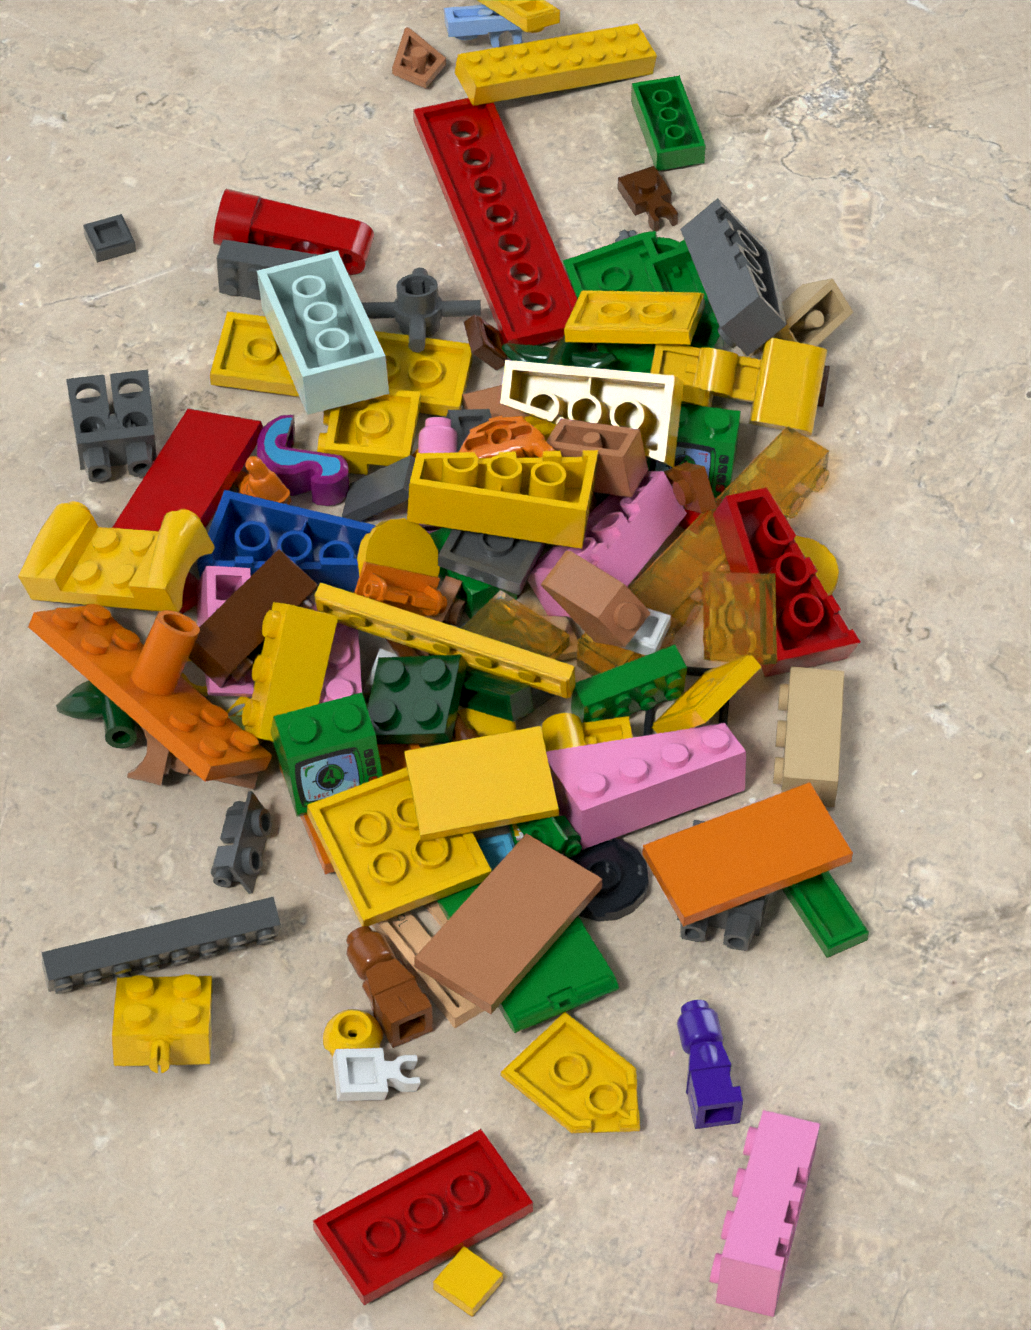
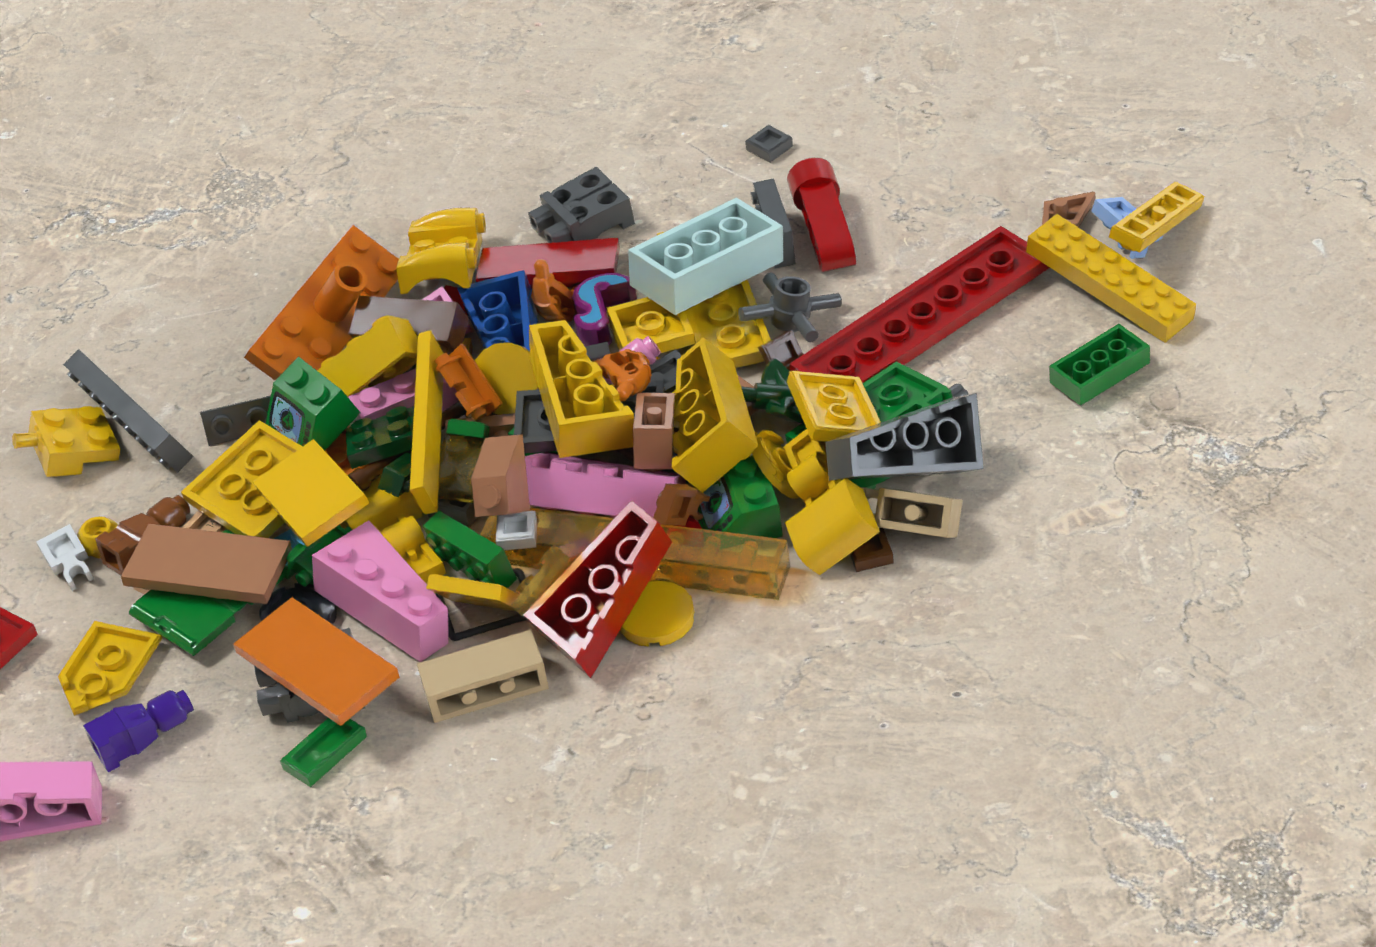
camera: 75 degrees right, 10 degrees down
(464, 614) = (468, 428): none -> green tile
(648, 193) = (1015, 384): reddish brown plate -> none

